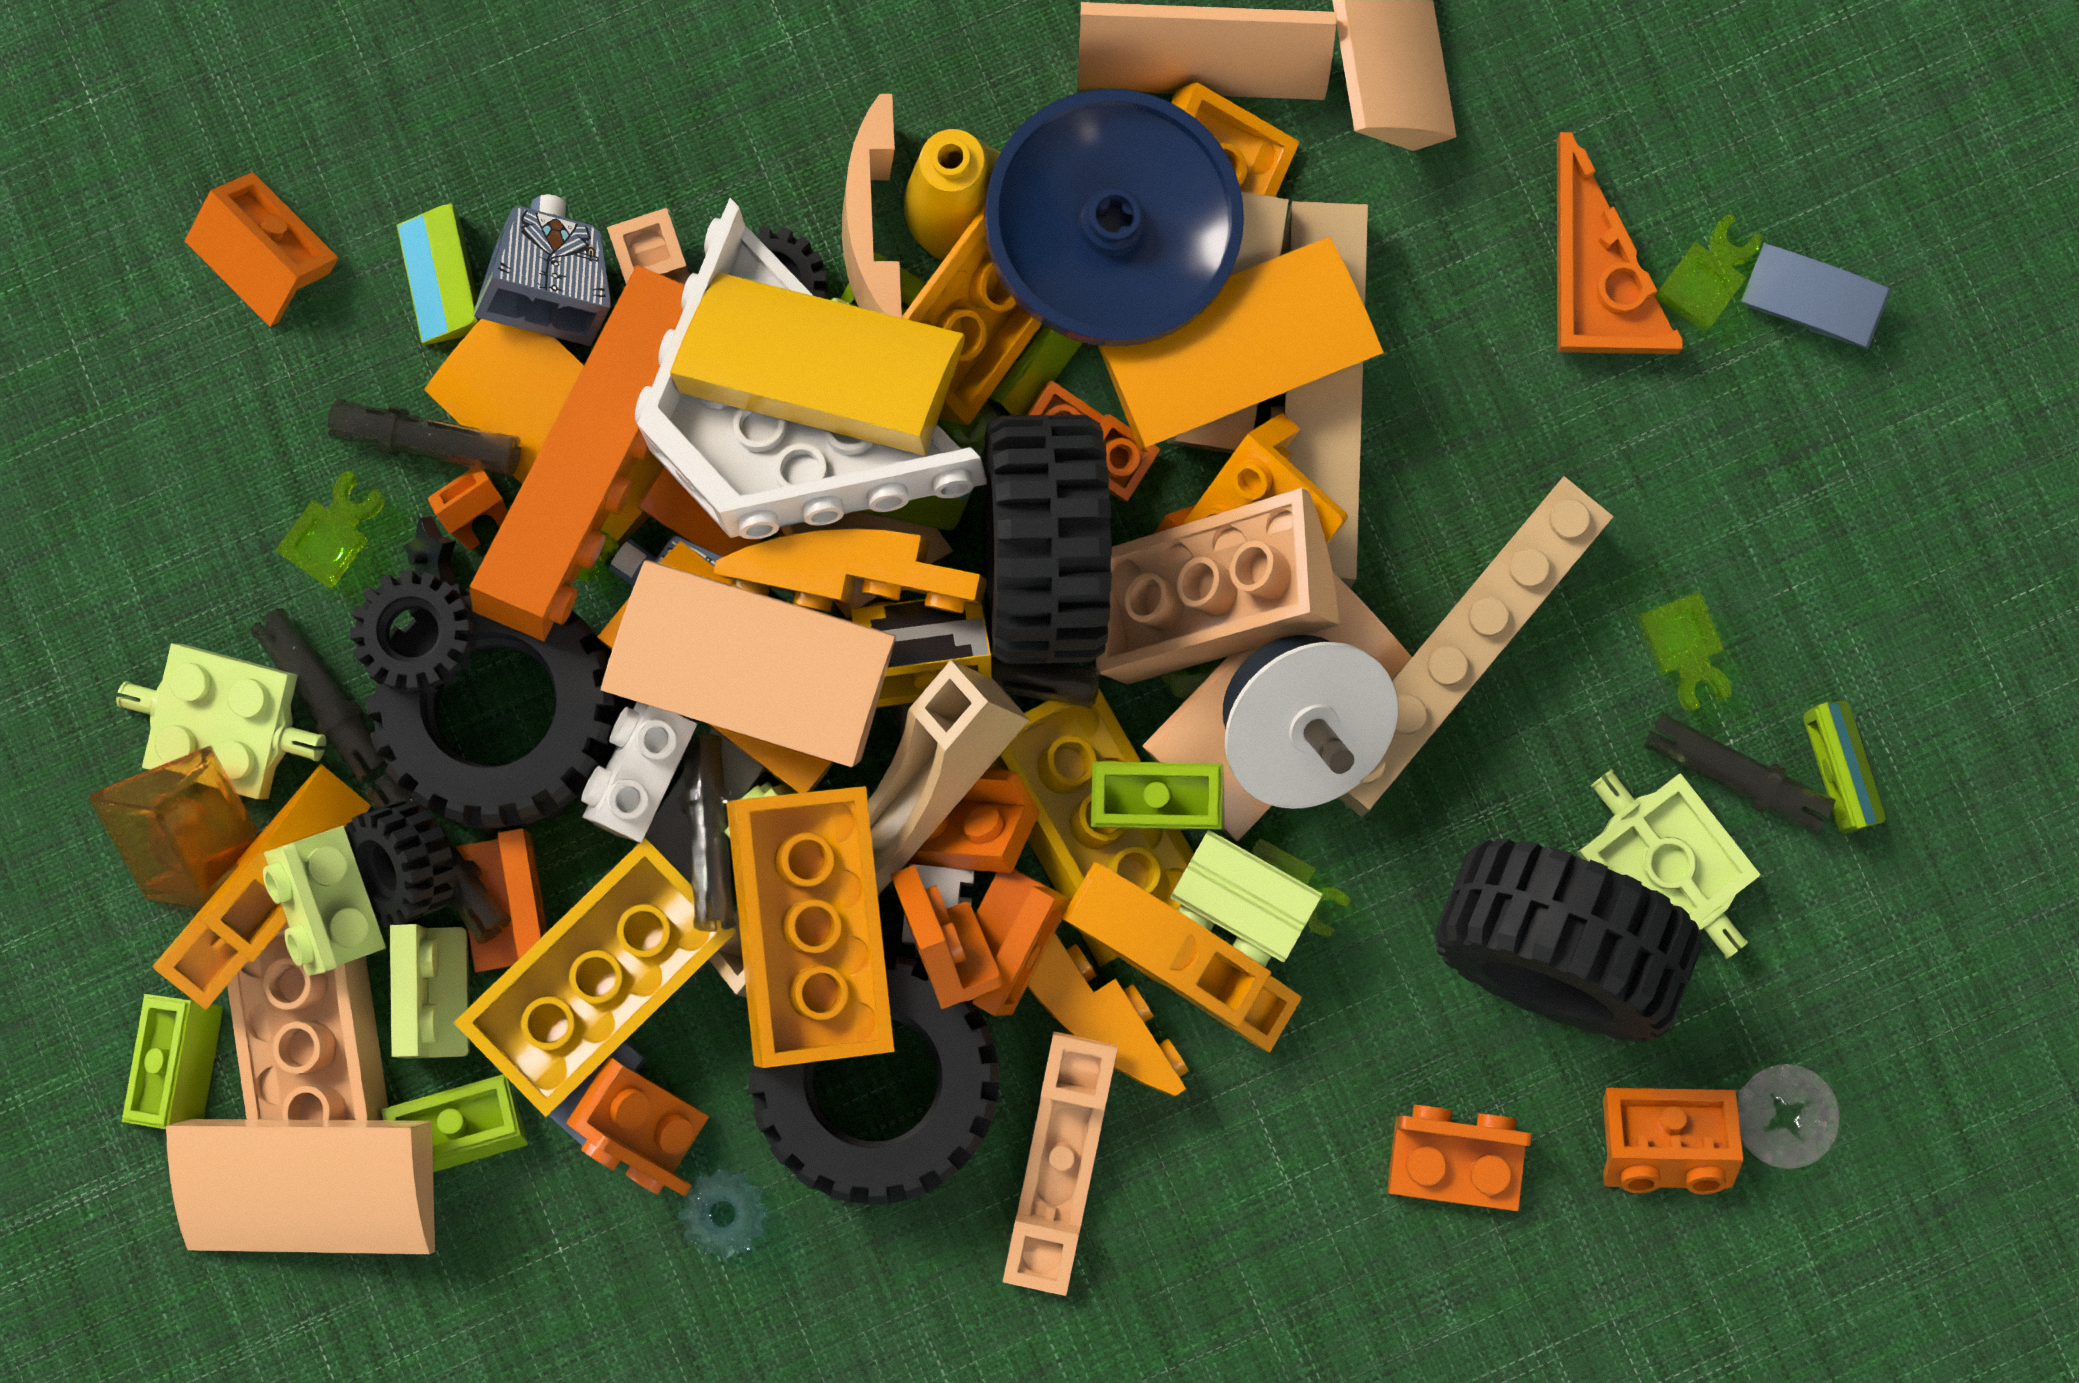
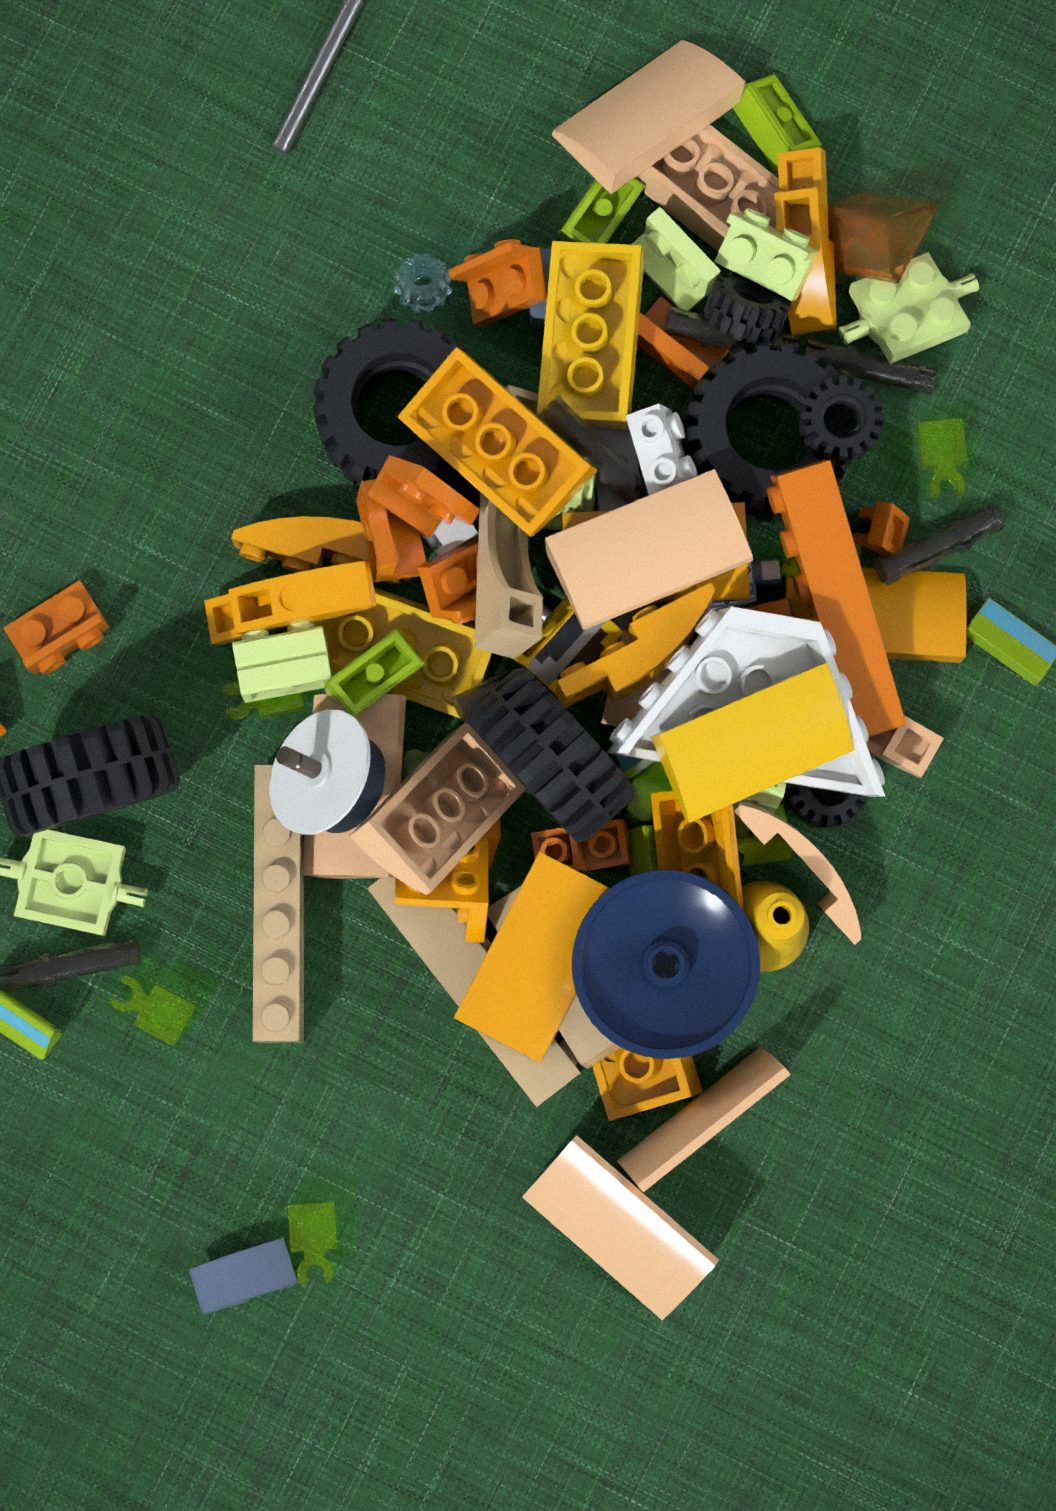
camera: 140 degrees right, 0 degrees up
(431, 551) = (878, 486): black piece -> none
(547, 274) = (953, 683): sand blue torso -> none
(1060, 1163) = (265, 448): light nougat slope -> none
(1601, 289) = (368, 1179): orange wing -> none

